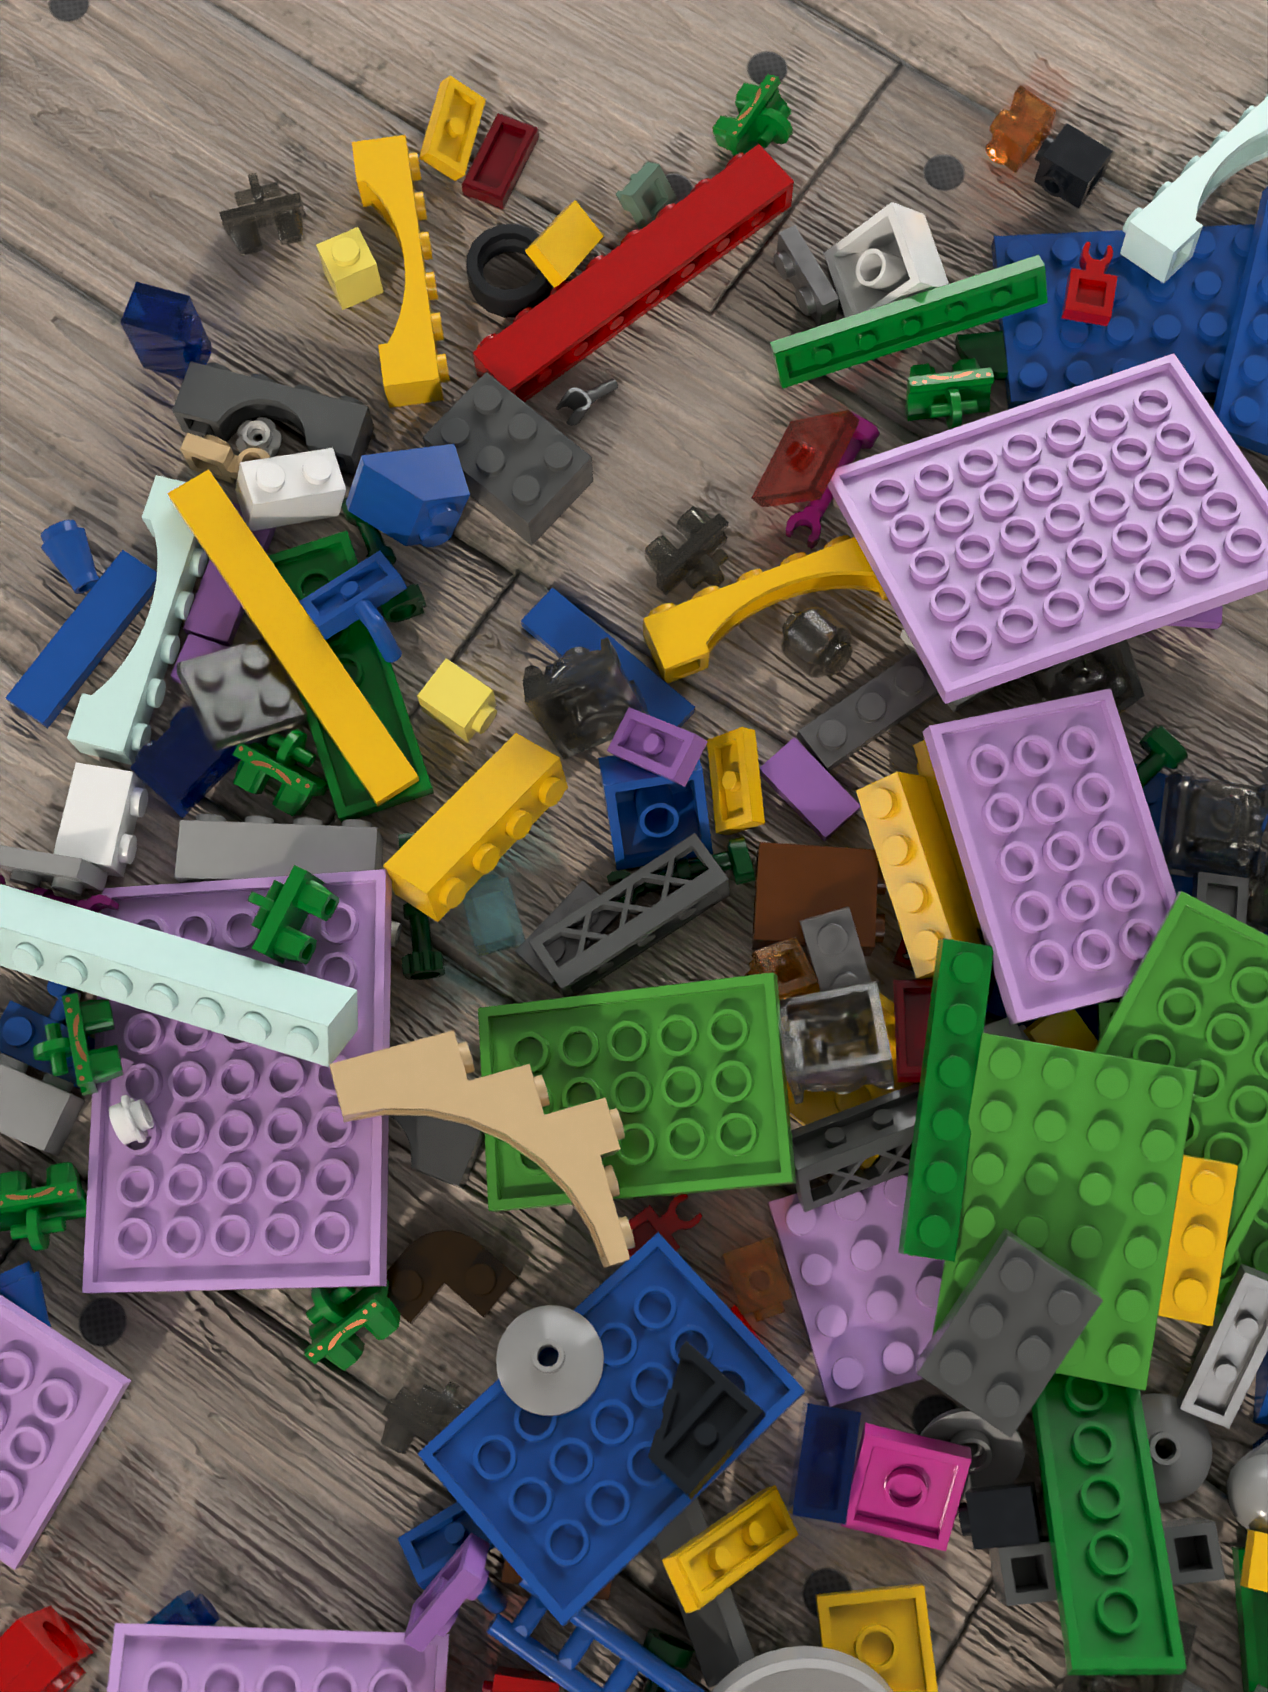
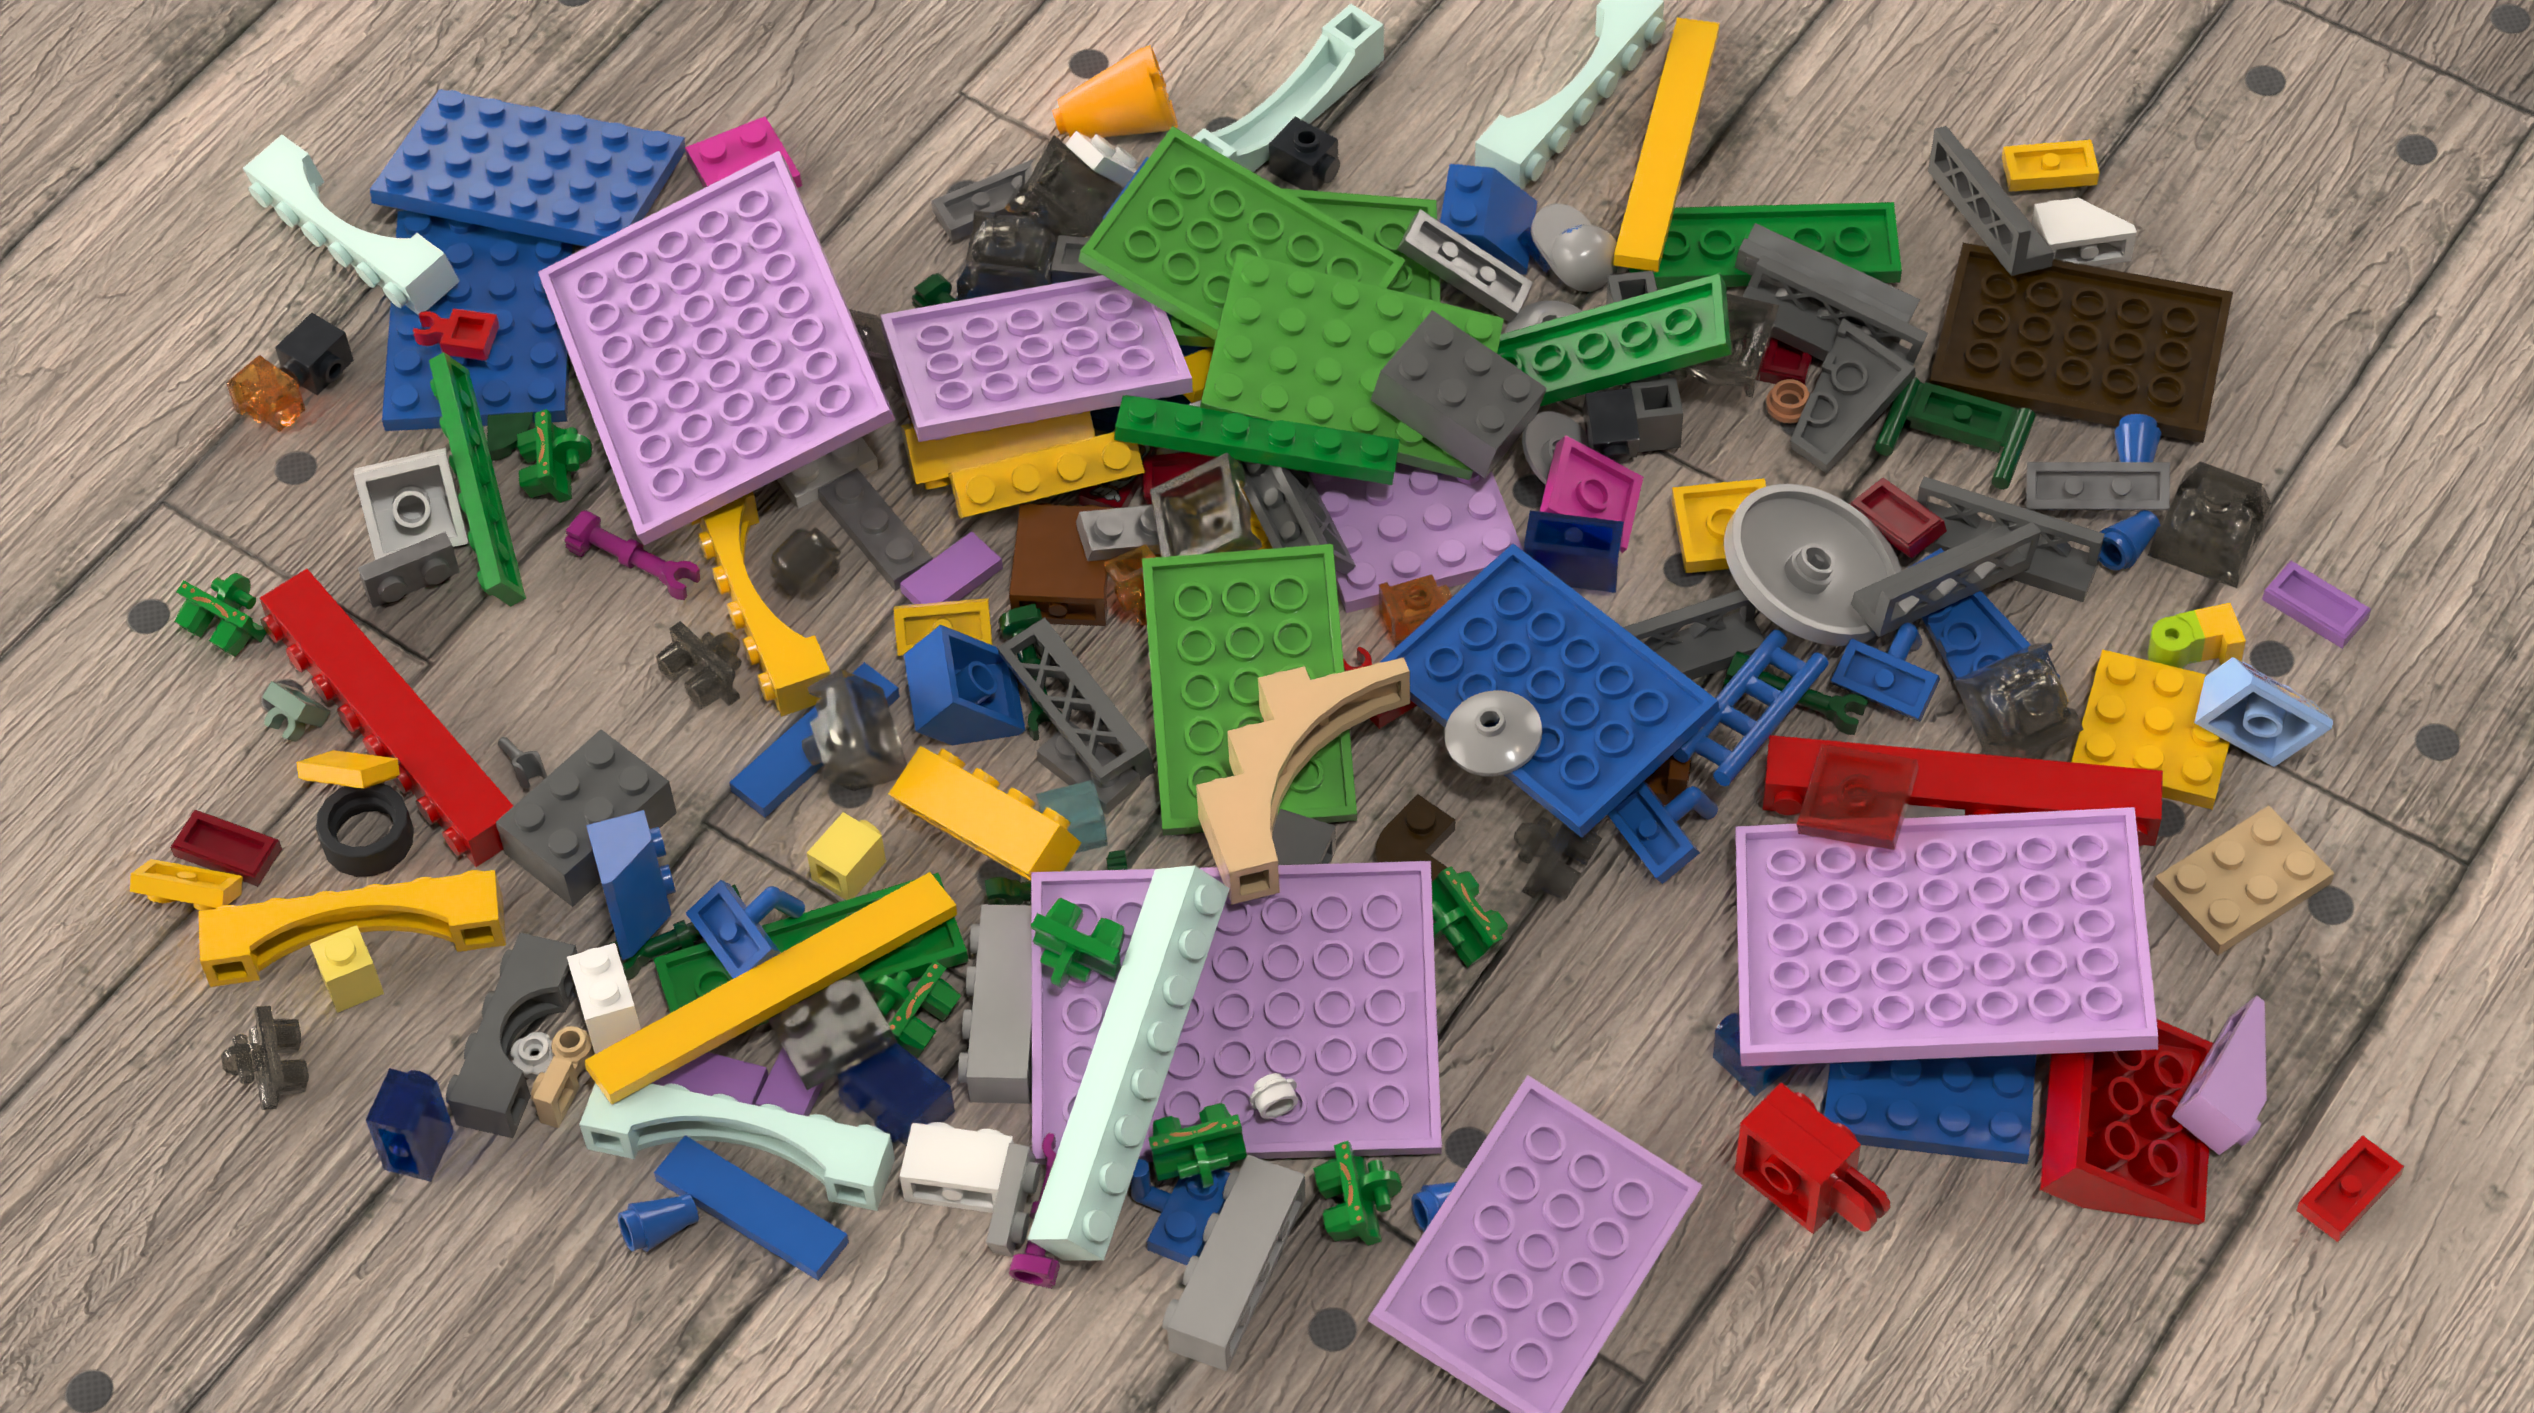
camera: 90 degrees left, 20 degrees down
(440, 1602) = (1698, 810): medium lavender plate -> none
(657, 746) = (916, 657): medium lavender plate -> none
(700, 1423) = (1541, 606): black wing -> none
(729, 1548) = (1648, 607): yellow tile -> none
(805, 459) = (617, 562): clear red plate -> none
(1198, 1240) = (1379, 267): yellow plate -> none

